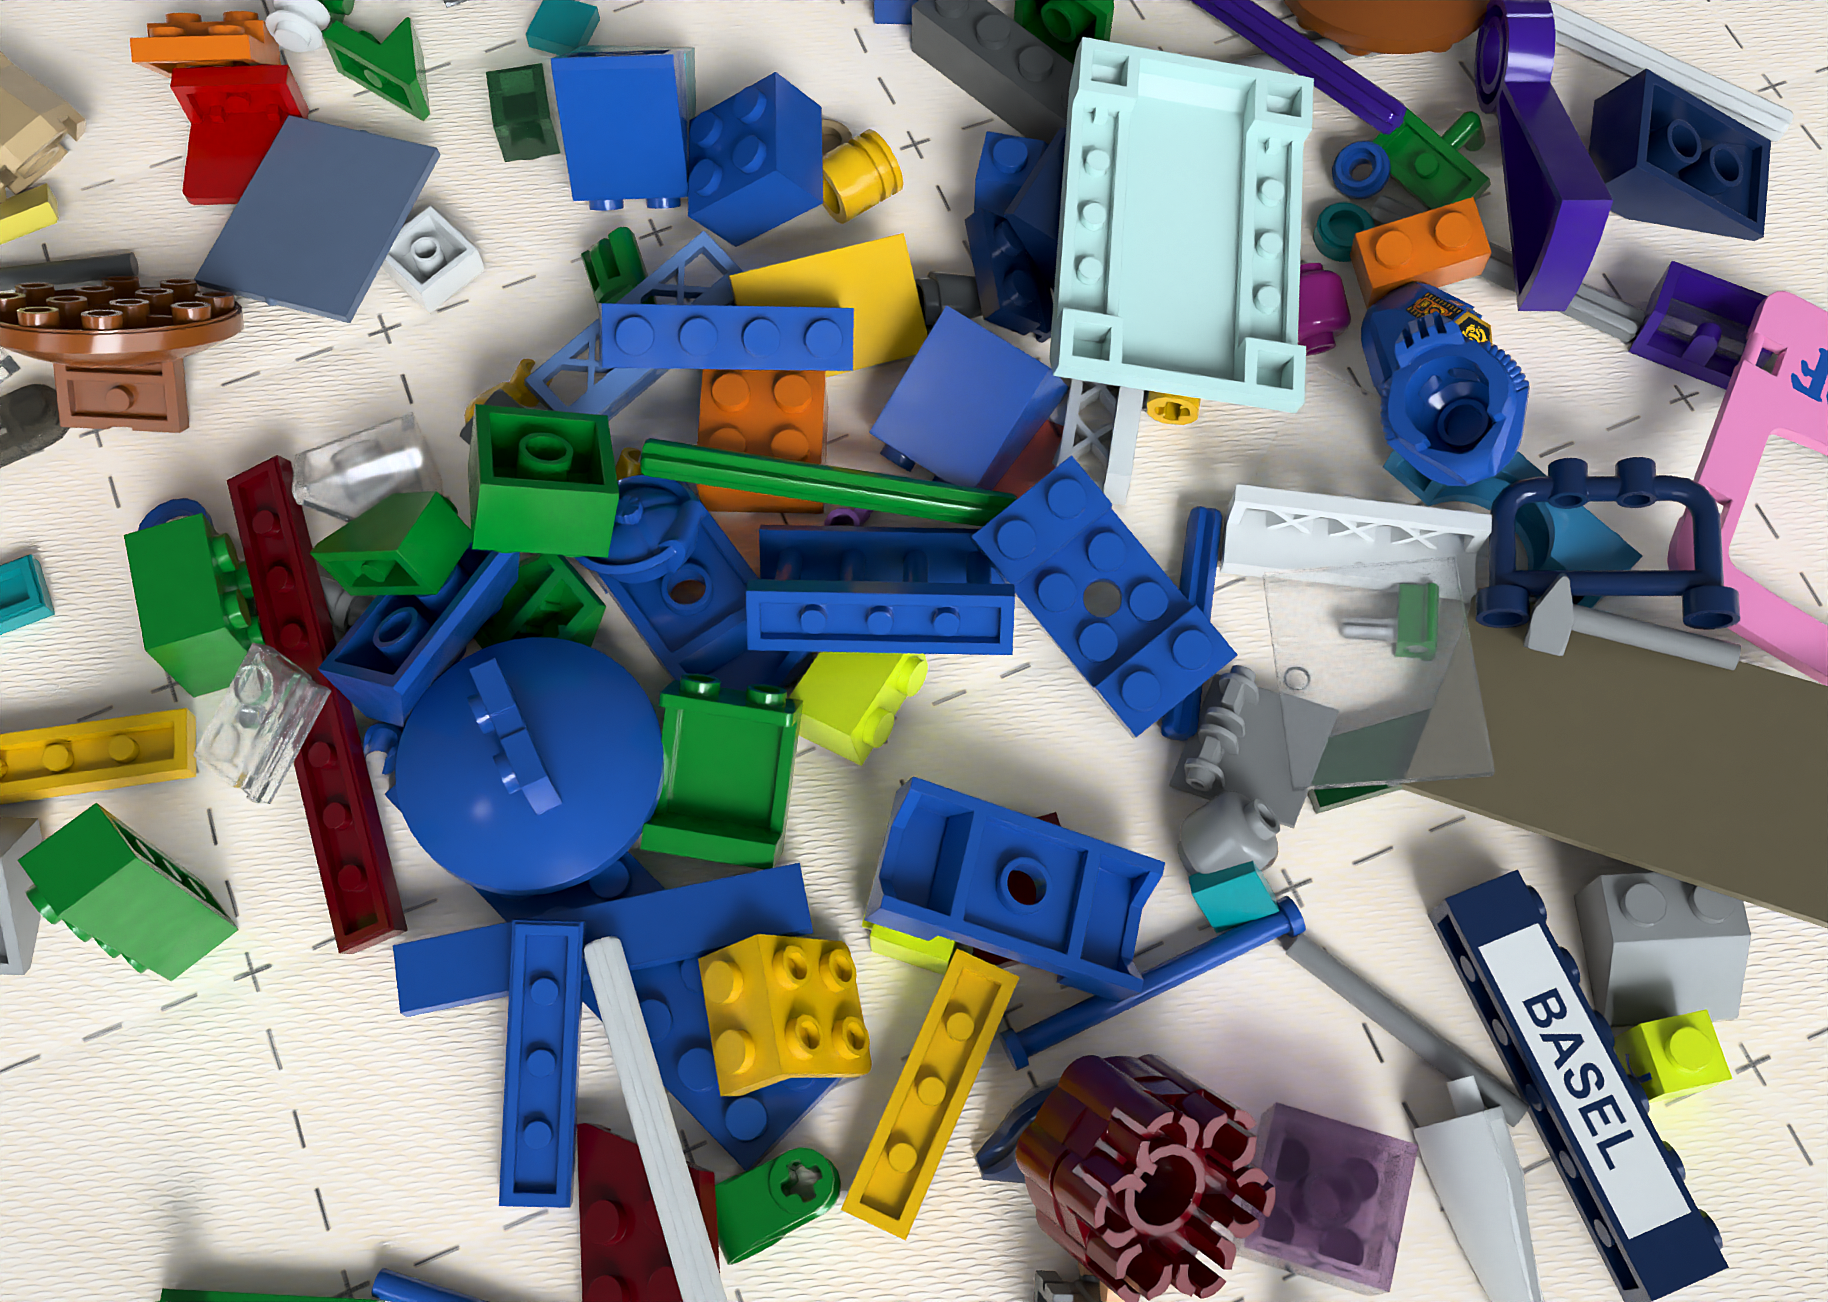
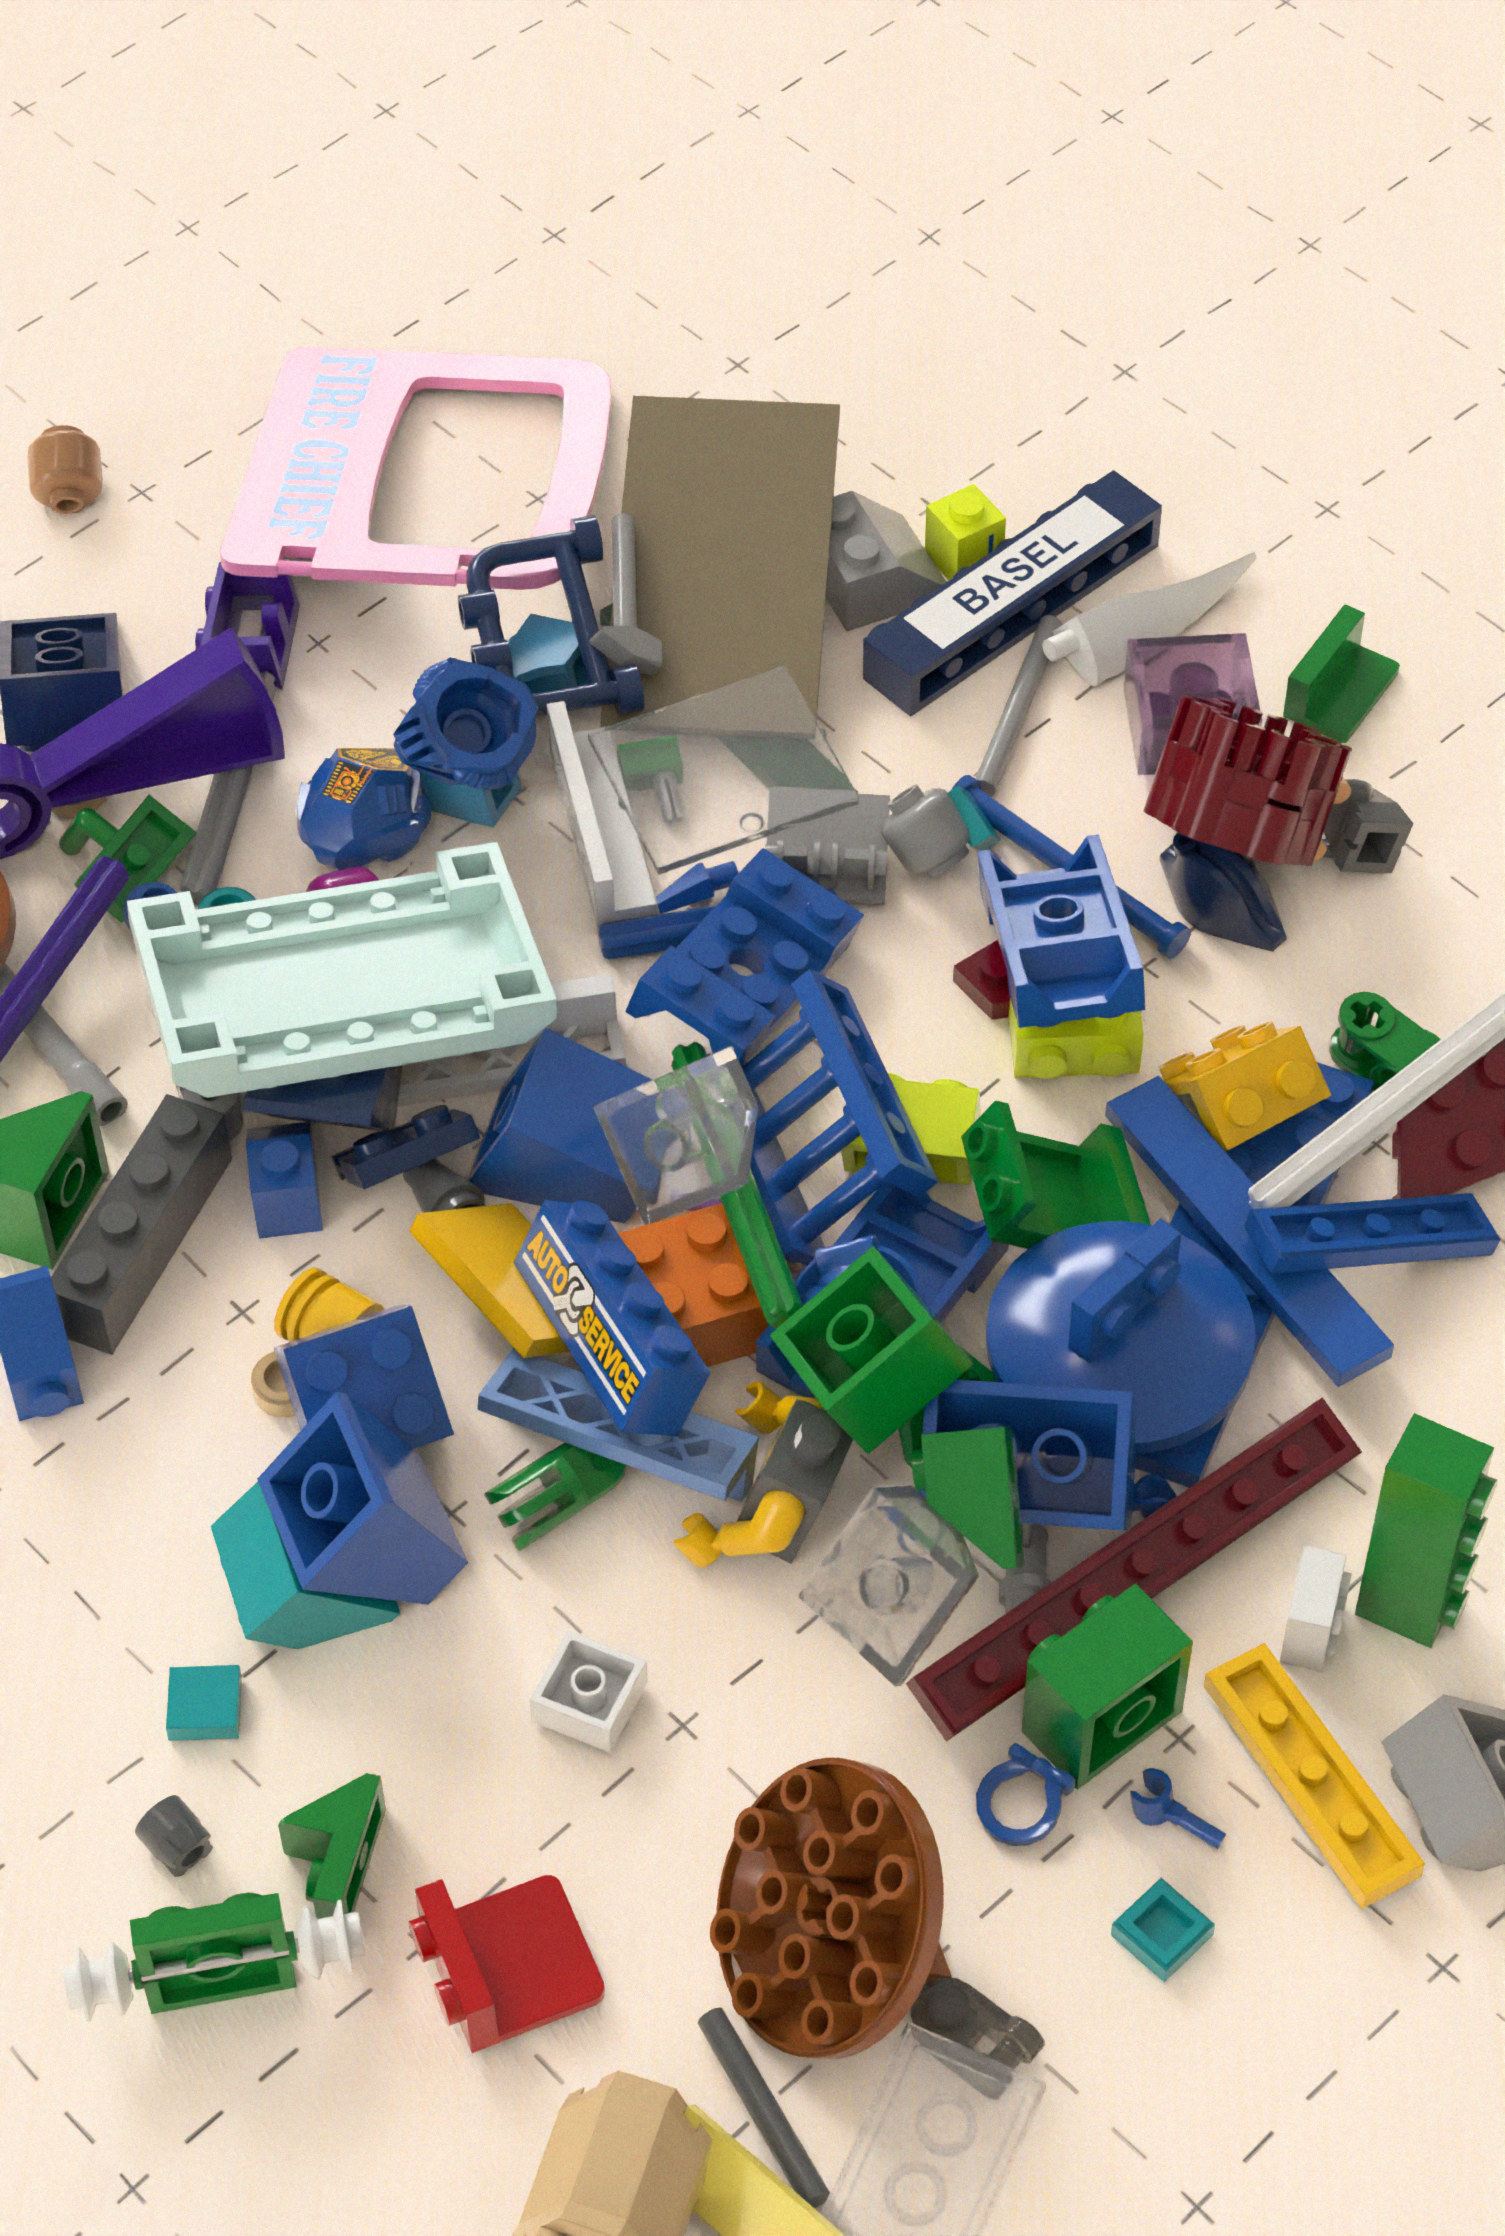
camera: 110 degrees left, 15 degrees down
(118, 644) = (1164, 1808): none -> blue hand
(191, 824) = (1316, 1609): none -> white piece
(192, 43) = (406, 2023): orange plate -> none
(261, 723) = (1197, 1585): clear plate -> none
(318, 218) = (585, 1813): sand blue piece -> none
(522, 112) = (358, 1674): clear green brick -> none
(884, 440) = (683, 1135): none -> clear slope
(930, 1094) = (1250, 973): yellow plate -> none
(1242, 612) = (696, 886): none -> blue bar
(1423, 248) = (261, 827): orange brick -> none

